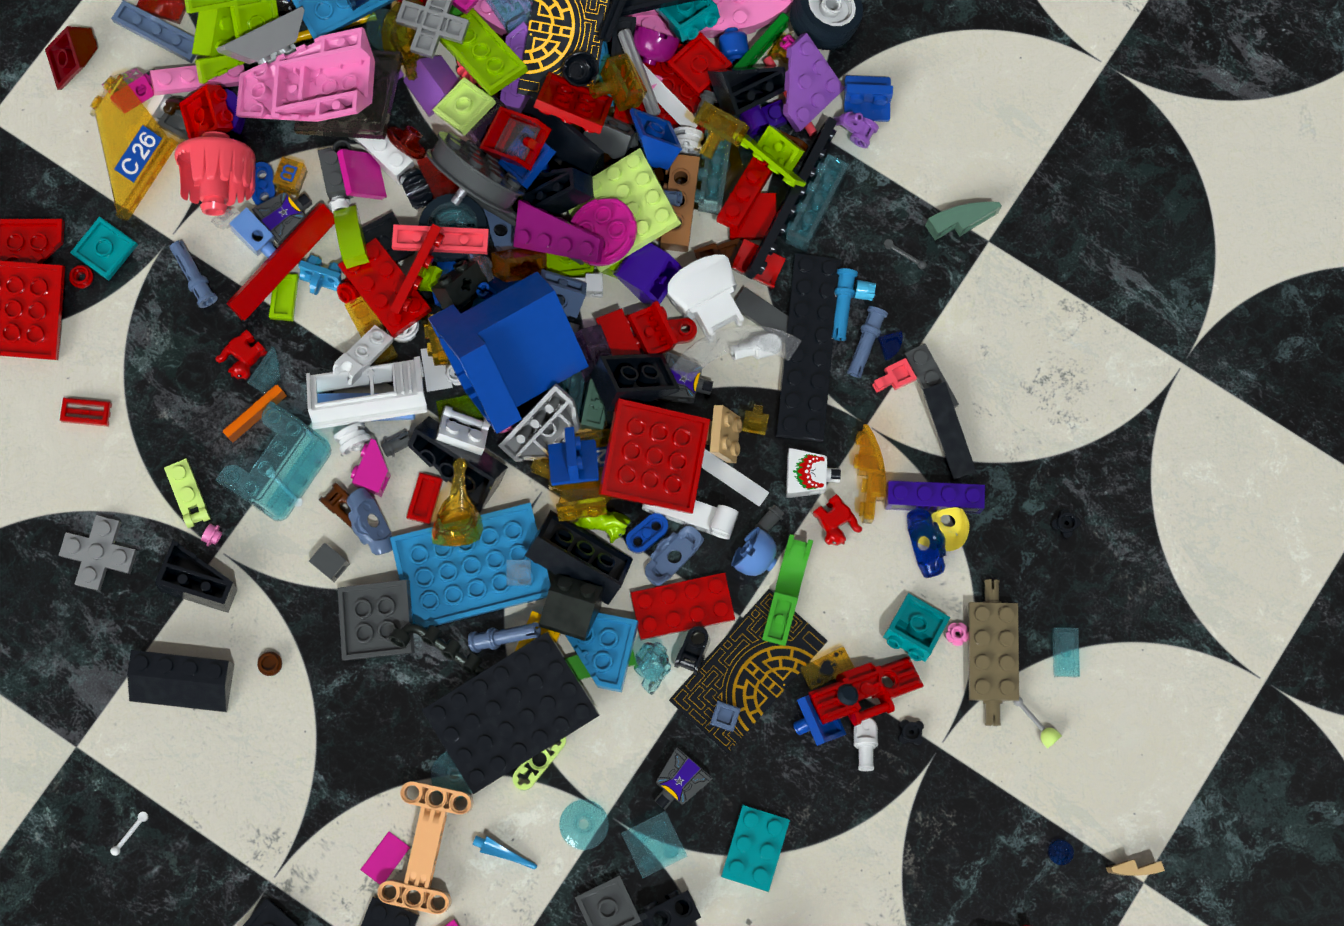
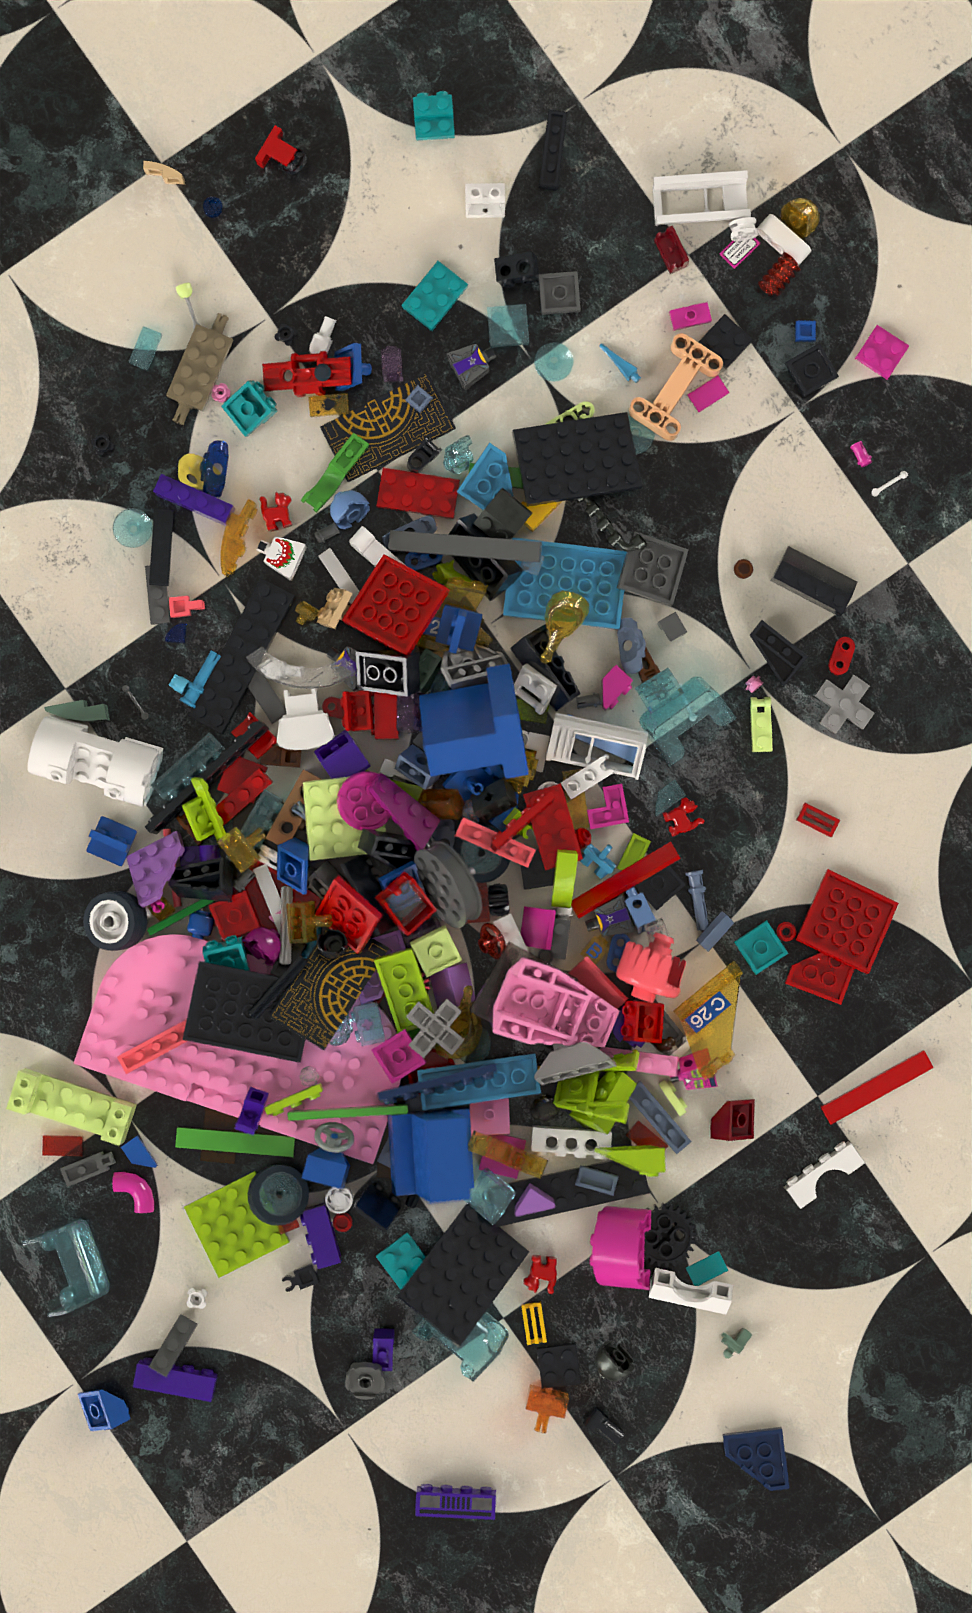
camera: 155 degrees left, 10 degrees up
(121, 606) = (841, 655): none -> red plate
(140, 51) = (678, 1104): none -> yellowish green plate
(161, 246) = (715, 931): none -> sand blue tile
(174, 854) = (861, 454): none -> dark pink pin
(237, 269) = (660, 887): none -> black plate
(253, 413) = (688, 766): orange tile -> none
(275, 137) = (597, 982): none -> coral tile
(317, 482) = (659, 690): none -> clear light blue brick
(322, 333) = (615, 809): none -> dark pink plate
(352, 438) = (620, 716): white wheel -> none
(424, 498) = (582, 651): red tile -> none
(495, 638) = (568, 520): sand blue pin -> none
(600, 554) = (465, 546): none -> dark grey tile
(771, 740) = (392, 364): none -> clear purple brick
(859, 126) = (128, 816): medium lavender piece -> none
(870, 331) = (189, 649): sand blue pin -> none
(959, 164) = (68, 752): none -> white cylinder
(998, 431) = (123, 524): none -> clear light blue dish

